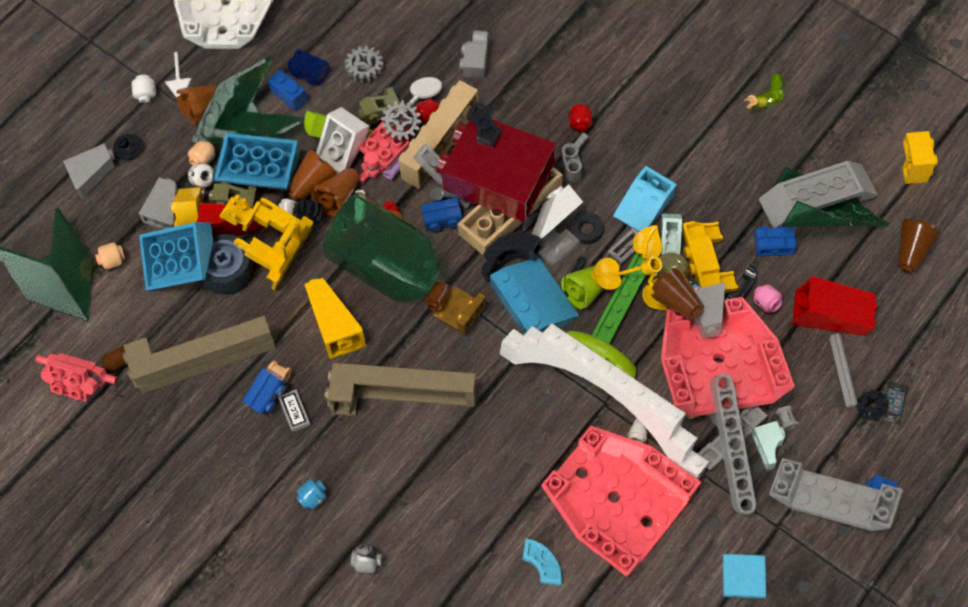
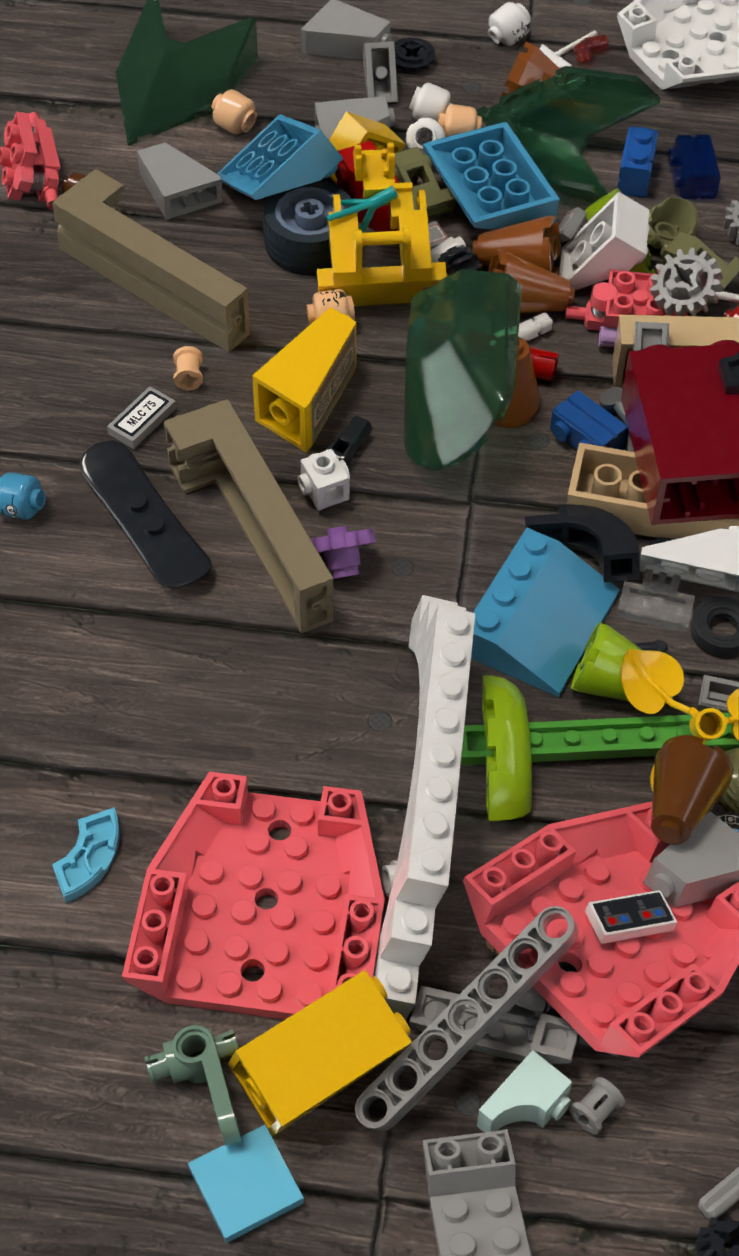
camera: 55 degrees right, 10 degrees down
(132, 169) = (380, 70): none -> light grey slope
(139, 310) = (177, 180): none -> light grey slope
(175, 159) = (429, 101): none -> white head
(185, 62) = (588, 45): none -> clear red arm
(254, 227) = (361, 204): none -> teal plant
(265, 391) = (142, 360): blue brick -> none
(289, 285) = (330, 298): none -> light nougat head
(309, 143) = (571, 224): none -> light grey tile
(340, 97) = (670, 219): none -> olive hair
(361, 441) = (143, 515): none -> black piece
(376, 323) = (351, 439): none -> black bar
(396, 346) = (324, 479): none -> white brick
(437, 296) = (444, 486): reddish brown brick -> none
(445, 358) = (342, 549): none -> medium lavender plant
(461, 310) = (447, 531): pearl gold bracket -> none
(675, 576) = (207, 1067): none -> sand green piece
(713, 513) = (319, 1051): none -> yellow slope
(720, 353) = (630, 916): none -> tile

